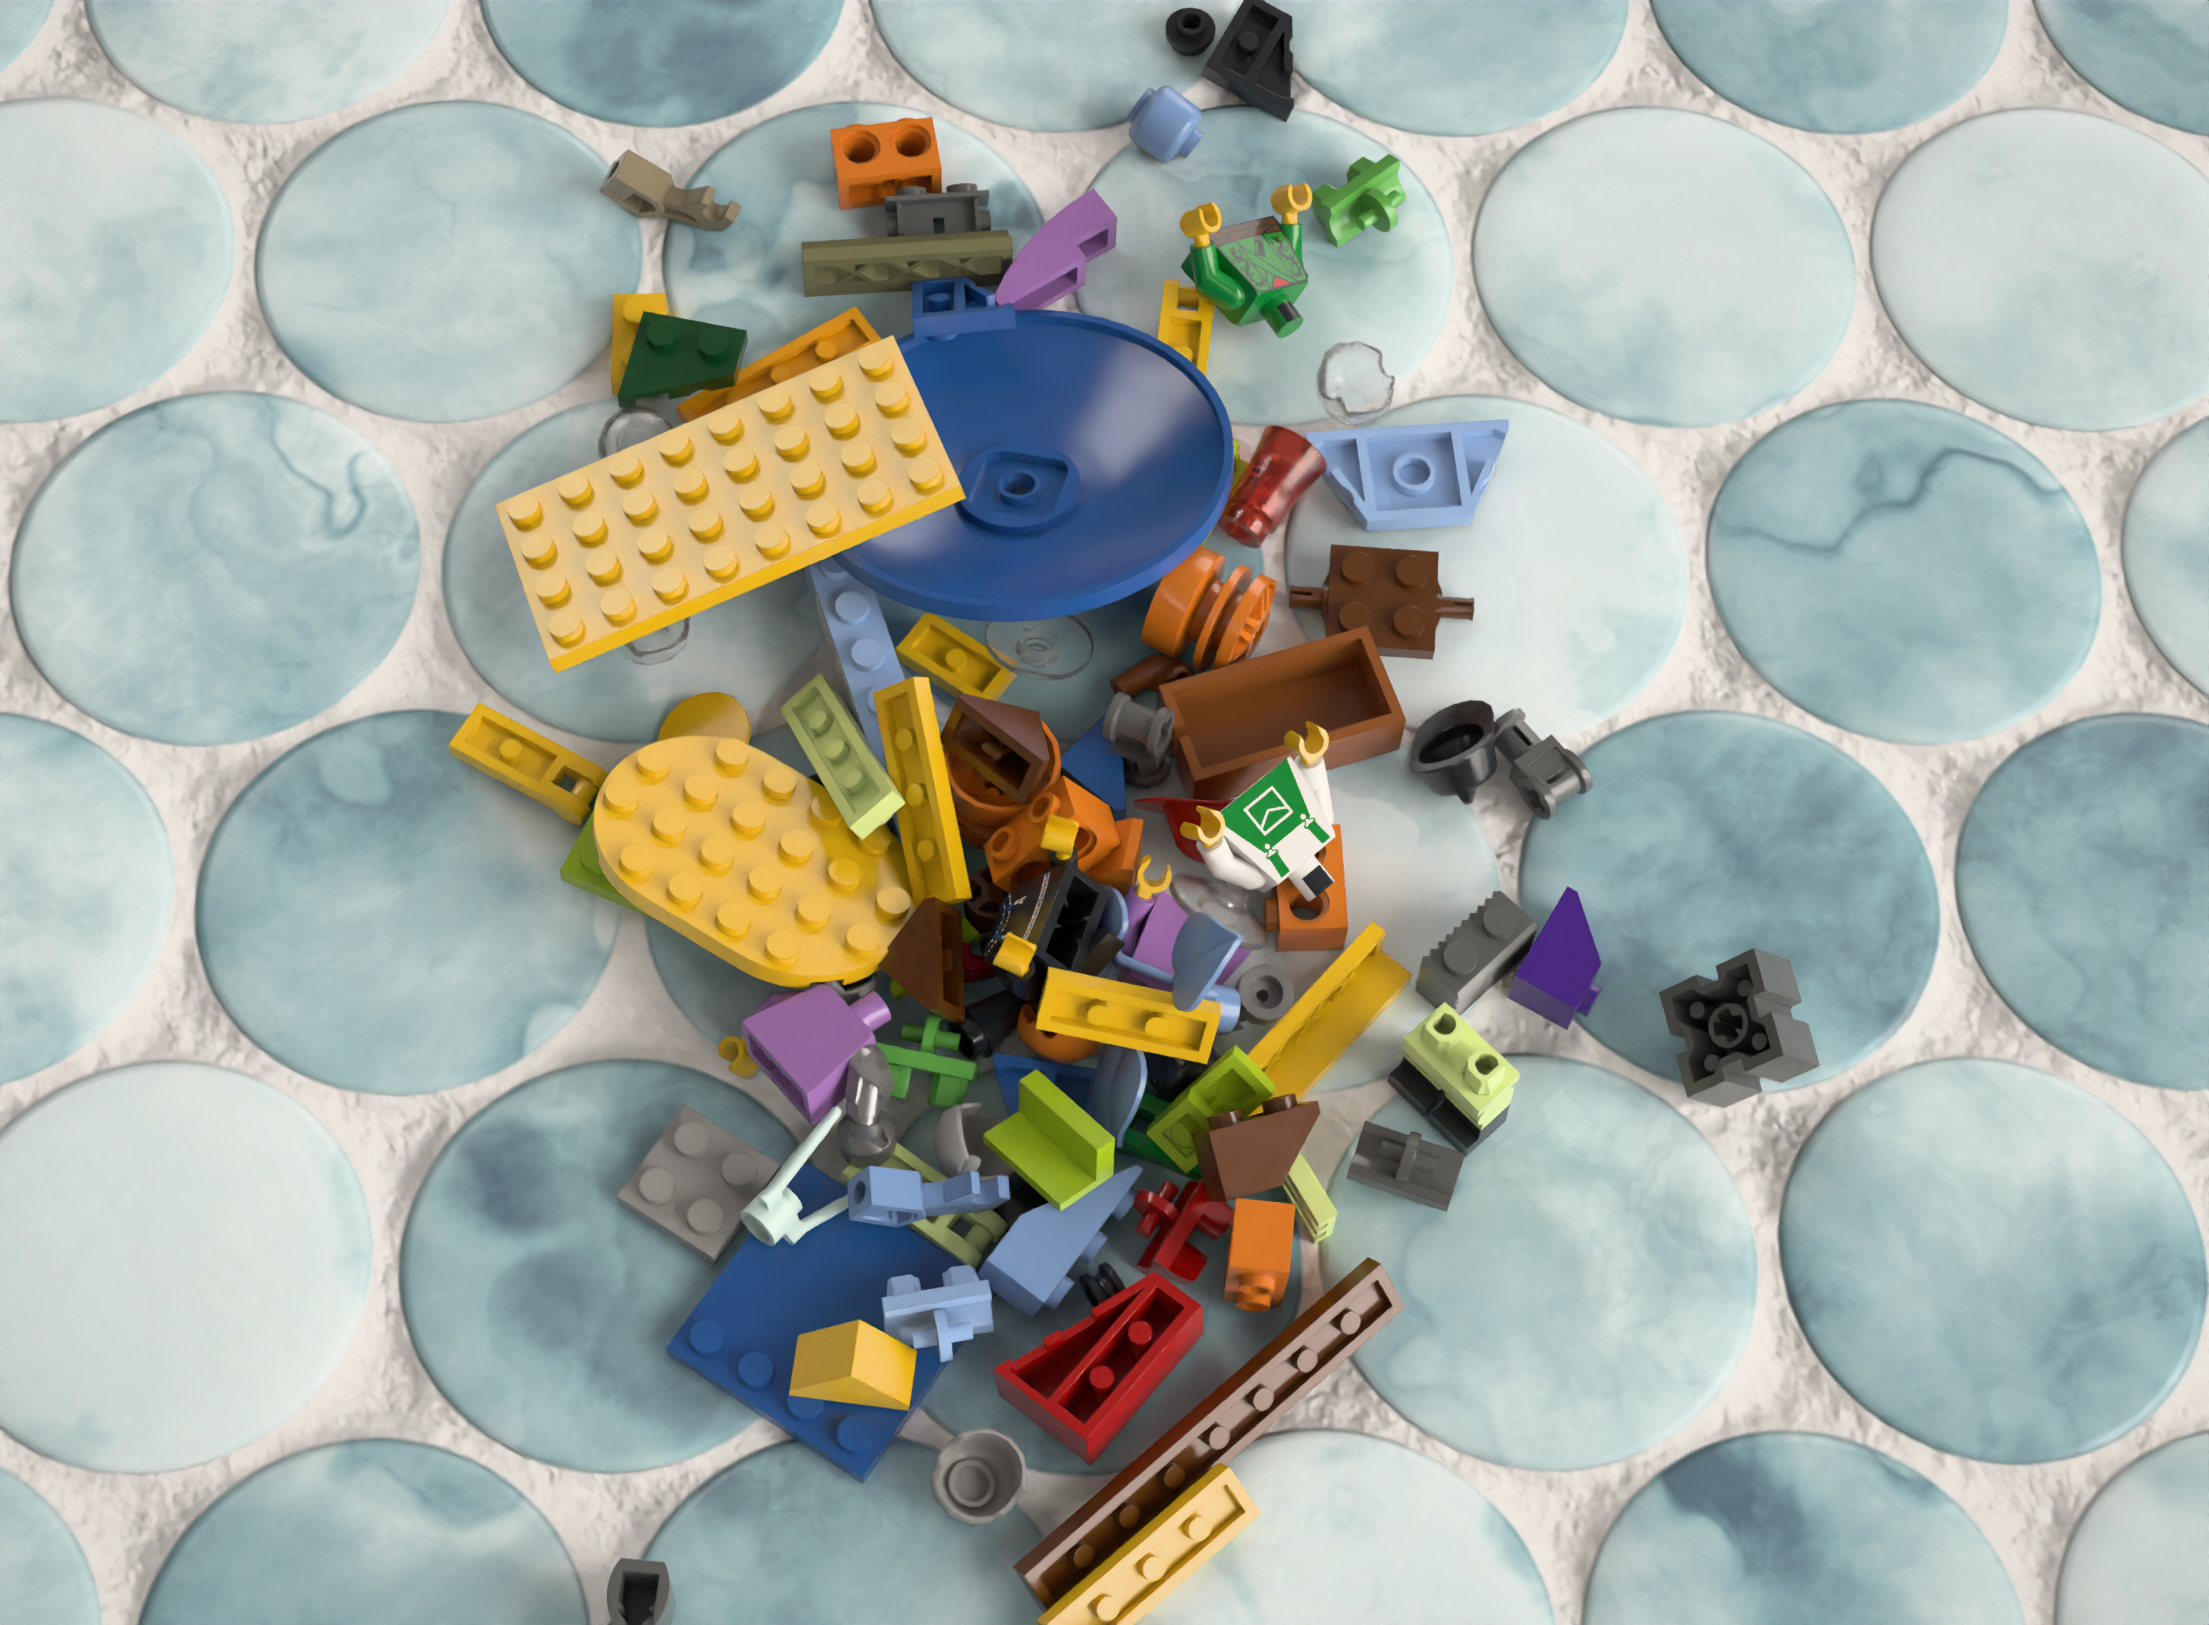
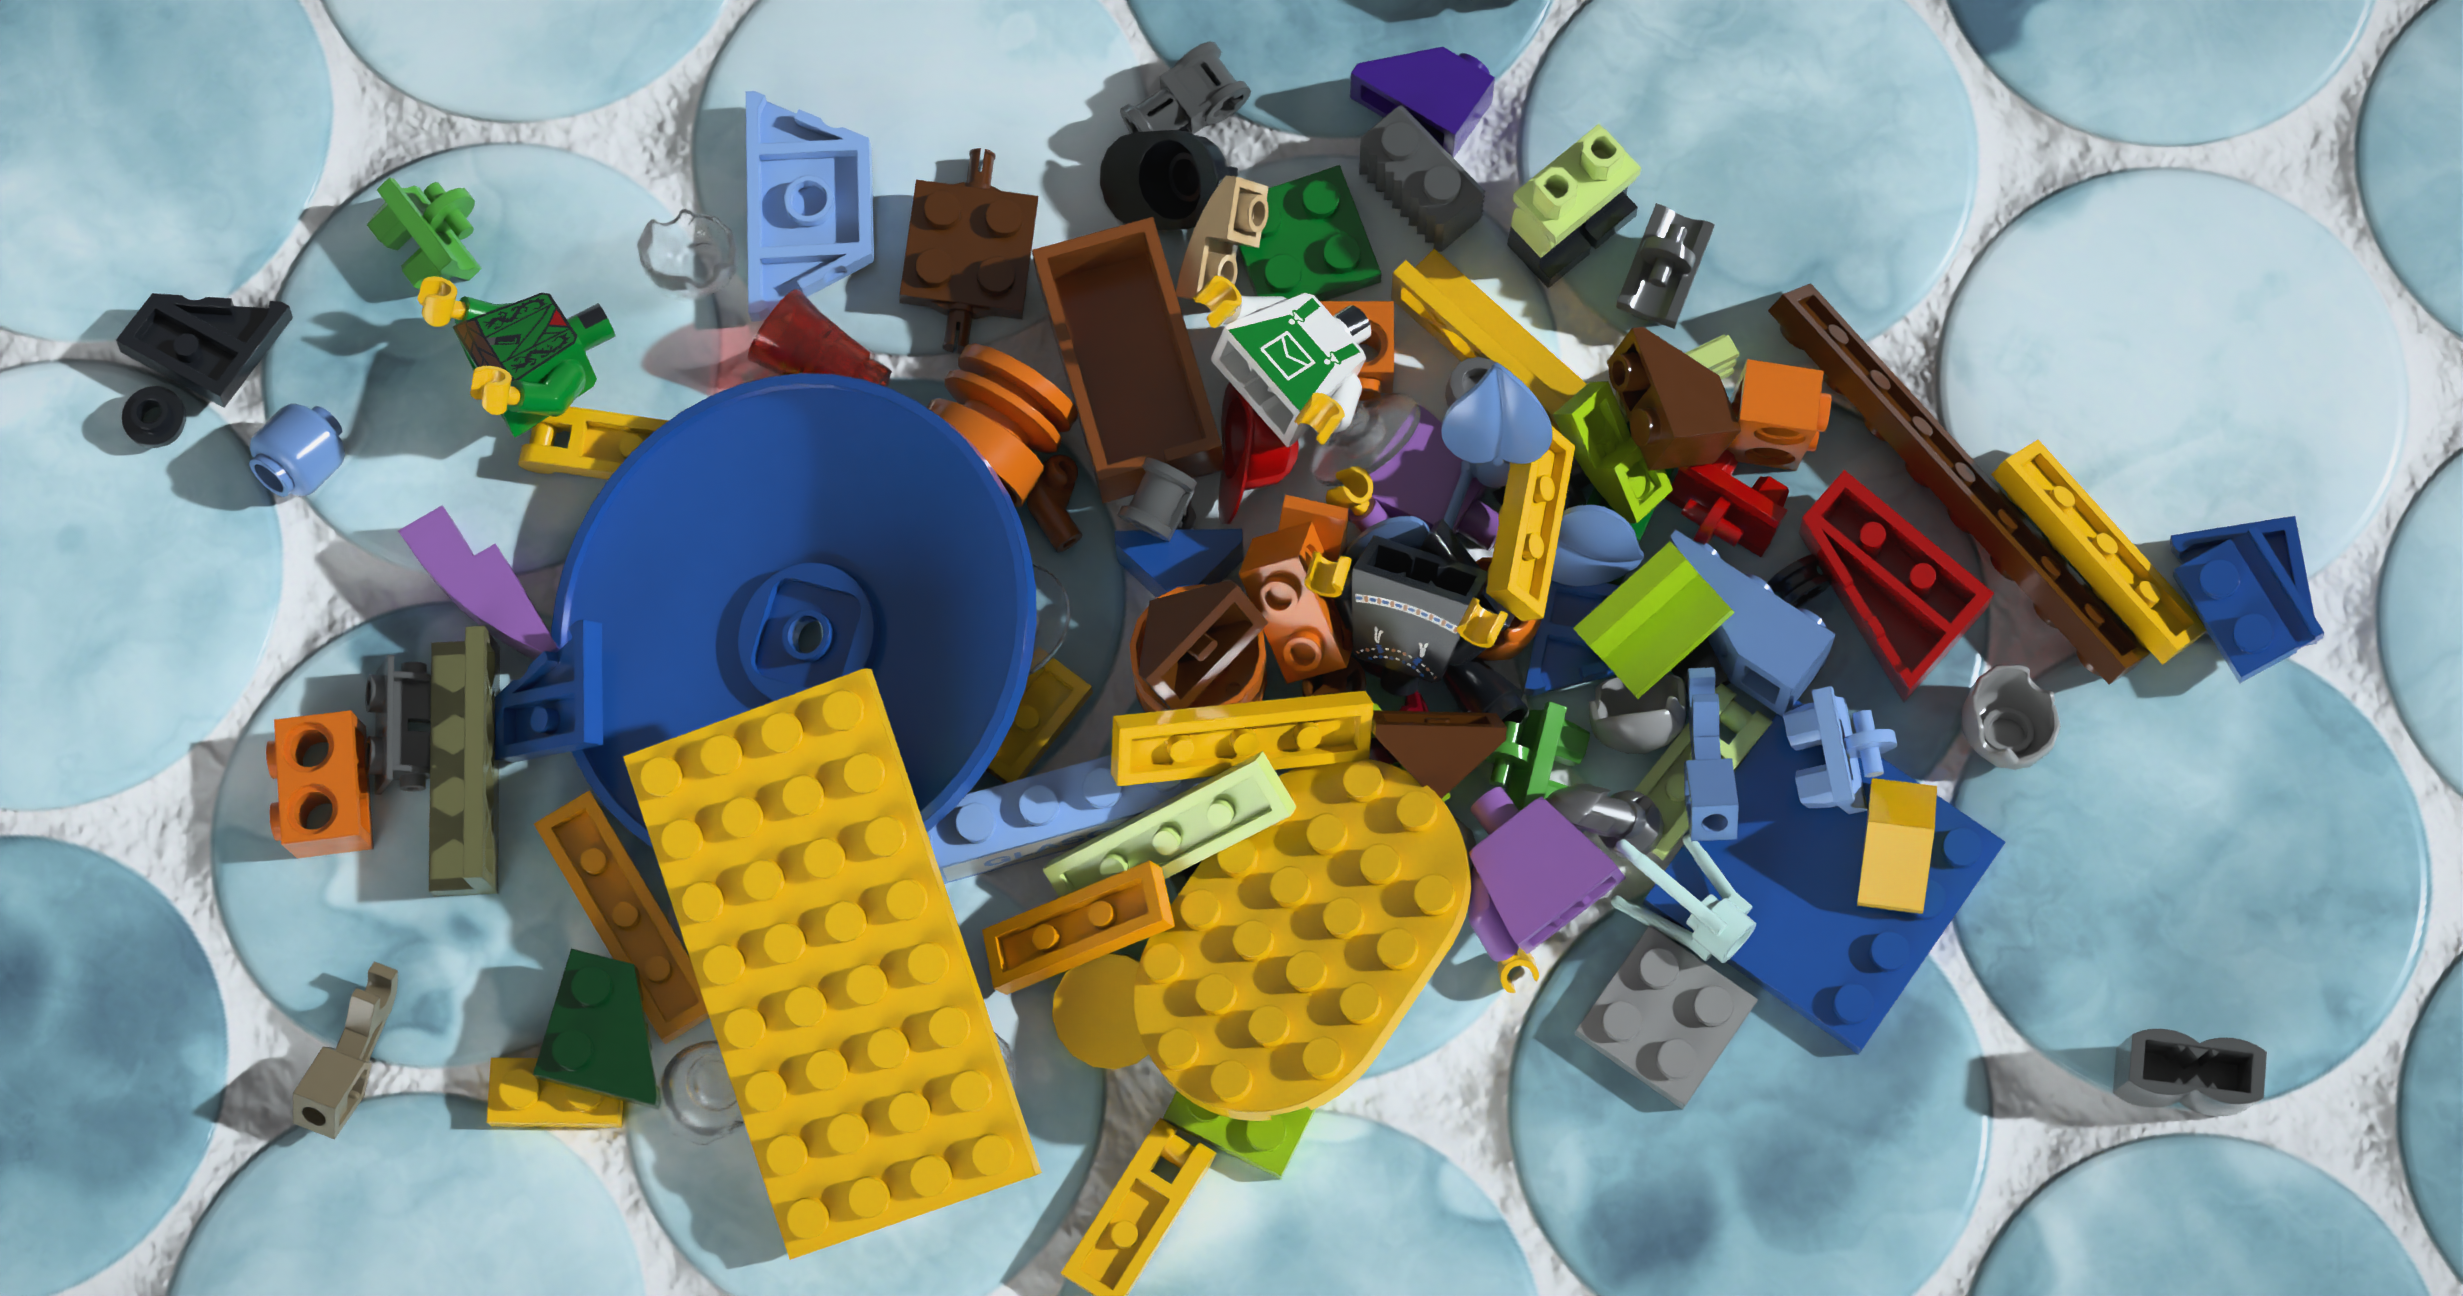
camera: 80 degrees left, 10 degrees up
(768, 698) = (1078, 927): none -> light orange plate
(1395, 784) = (1229, 220): none -> tan slope
(1412, 868) = (1311, 241): none -> green plate

